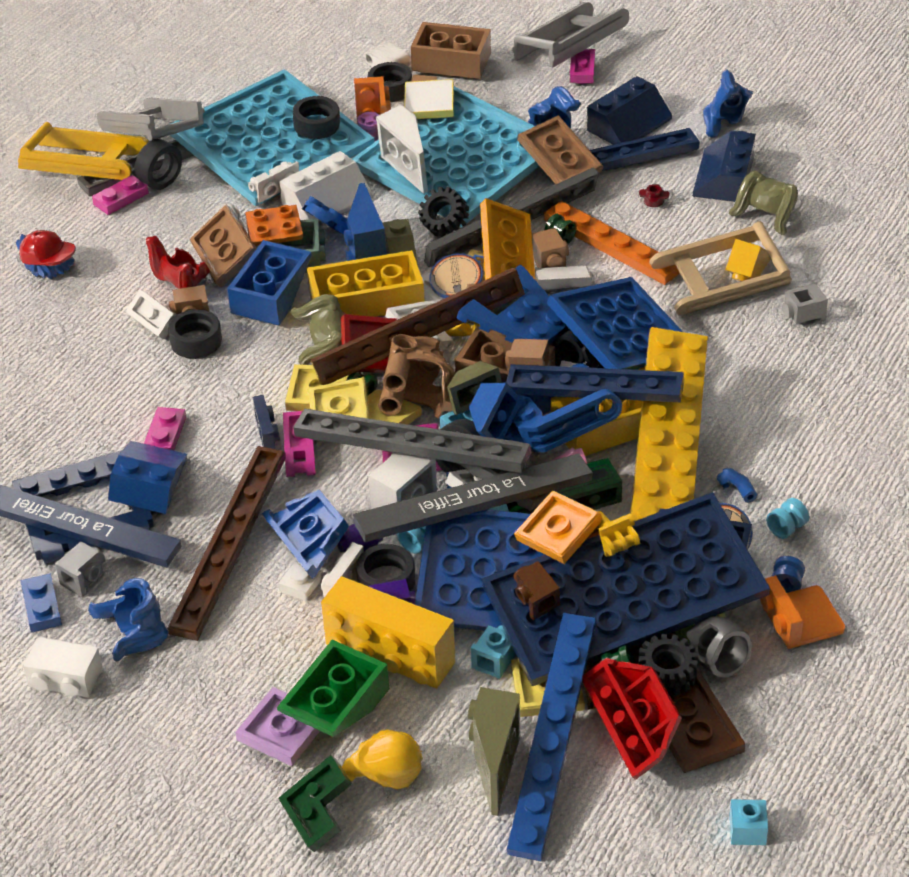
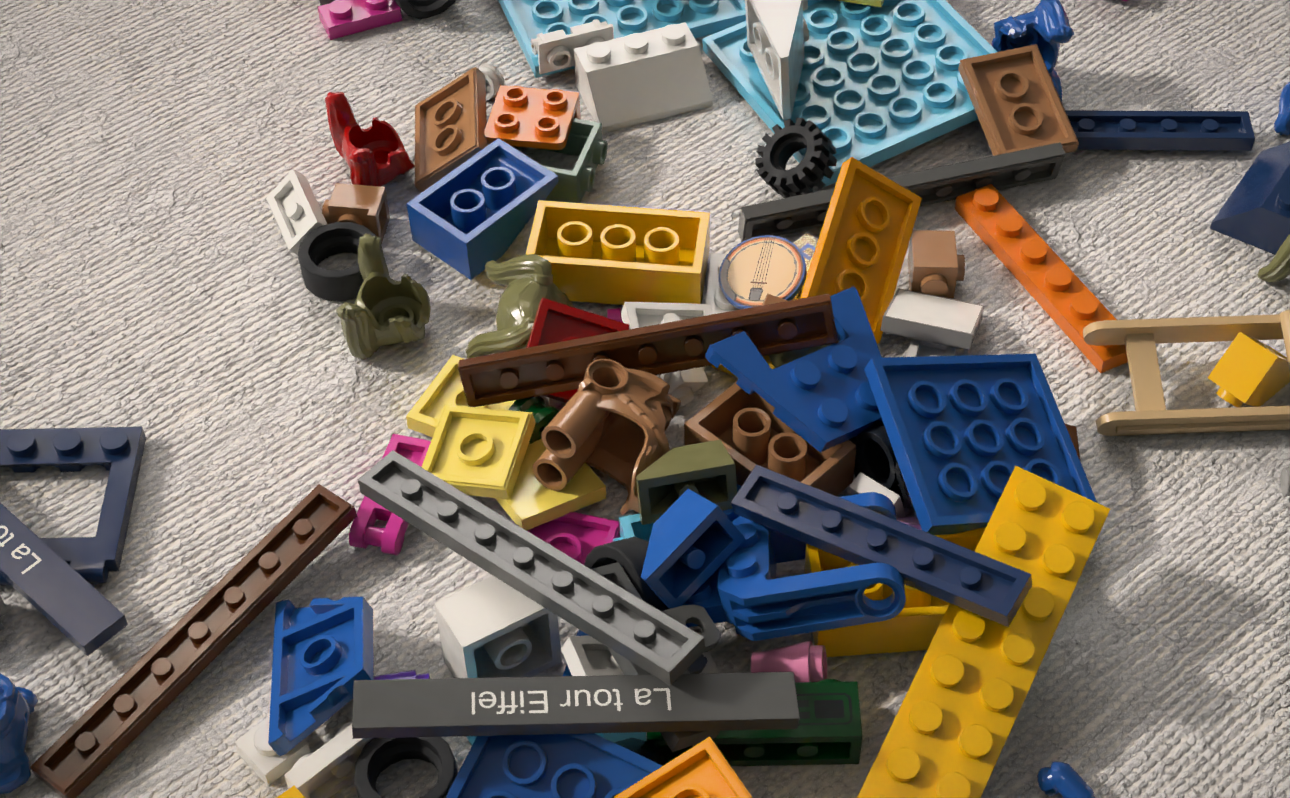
camera: 20 degrees right, 5 degrees up
(45, 253) = (205, 79): red hair -> none
(146, 476) = (138, 482): blue slope -> none
(166, 427) = (216, 411): dark pink plate -> none
(240, 351) = (384, 308): none -> olive hair
(264, 416) = (356, 450): dark blue plate -> none
(325, 214) = (615, 118): blue plate -> none
(365, 228) = (655, 156): blue slope -> none
(399, 237) = (709, 190): olive slope -> none
(528, 353) = (796, 454): medium nougat brick -> none
(566, 229) = (971, 234): dark green wheel -> none
(628, 112) = (1159, 63): dark blue slope -> none
(654, 195) = (1145, 212): dark red plate -> none

